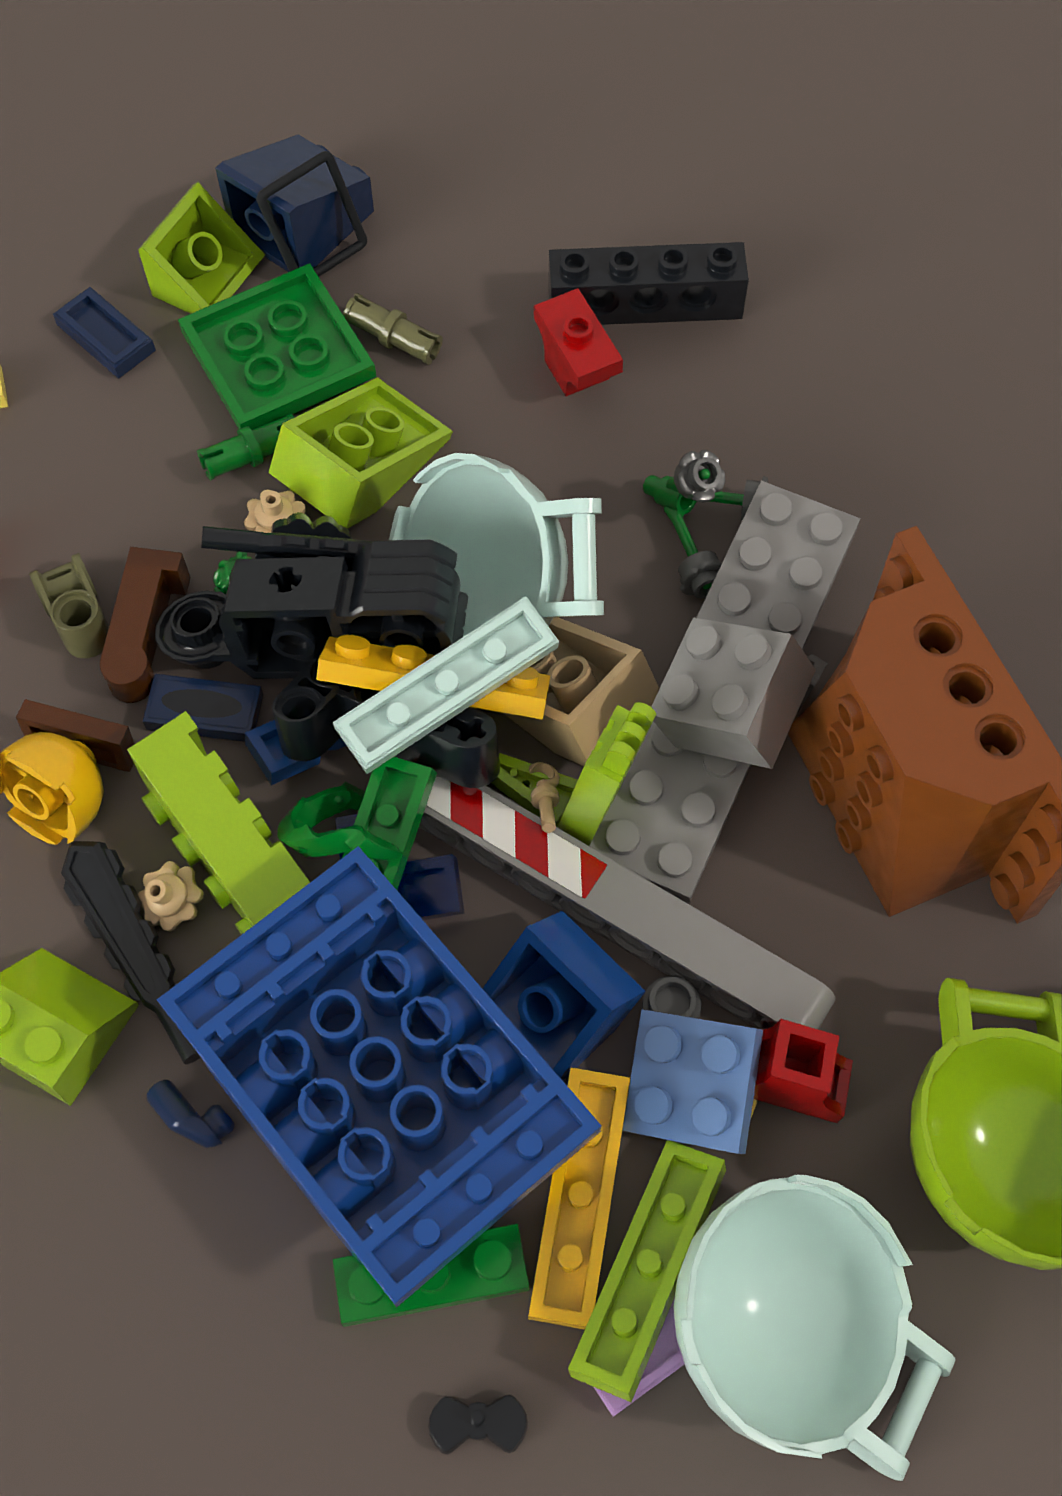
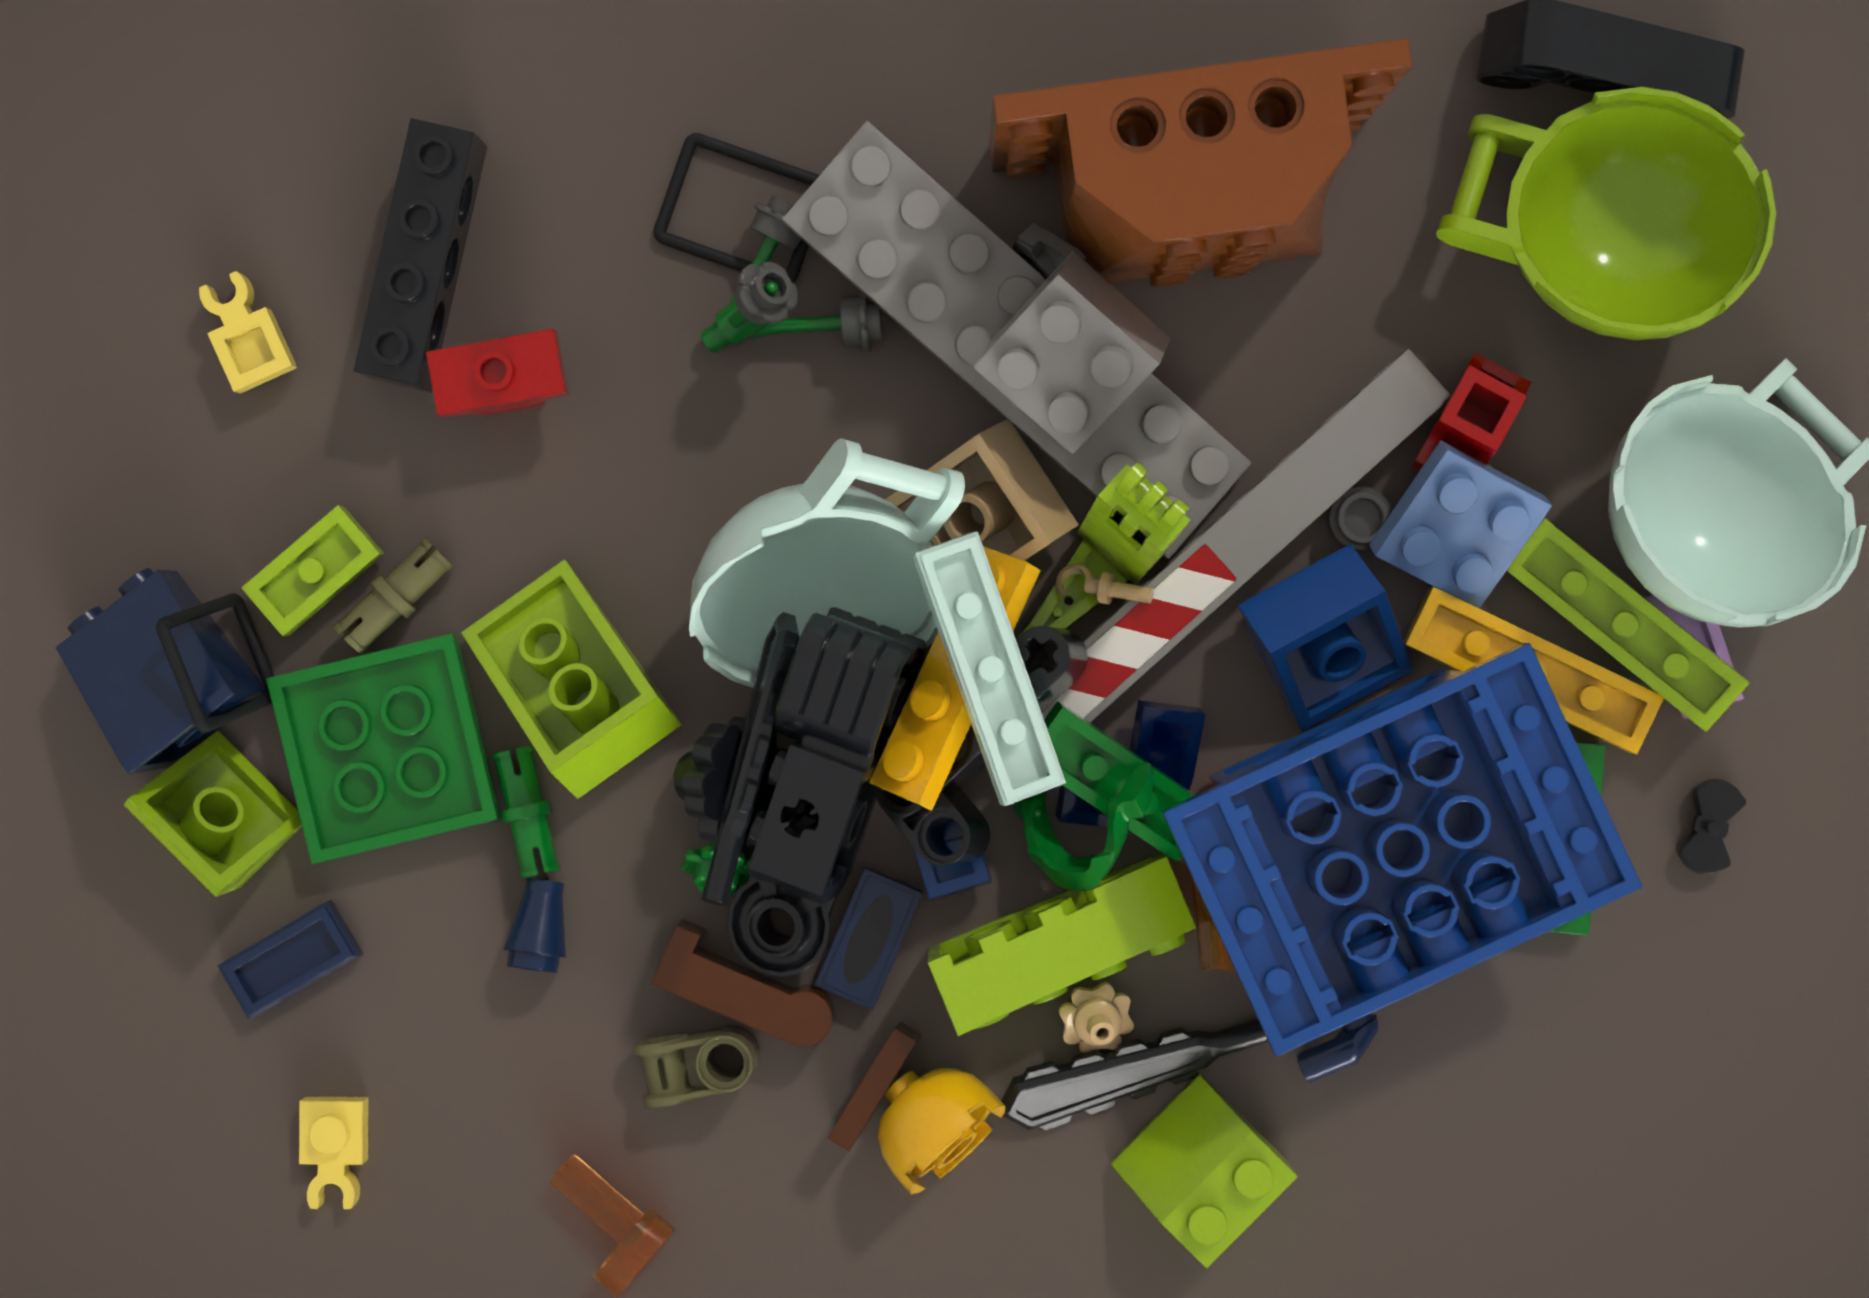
camera: 70 degrees left, 25 degrees up
(160, 474) = (538, 928): none -> dark blue cone
(270, 508) = (637, 803): tan plant -> none
(397, 277) = (313, 570): none -> lime plate
(552, 207) = (249, 342): none -> light yellow plate
(763, 437) = (740, 154): none -> black piece

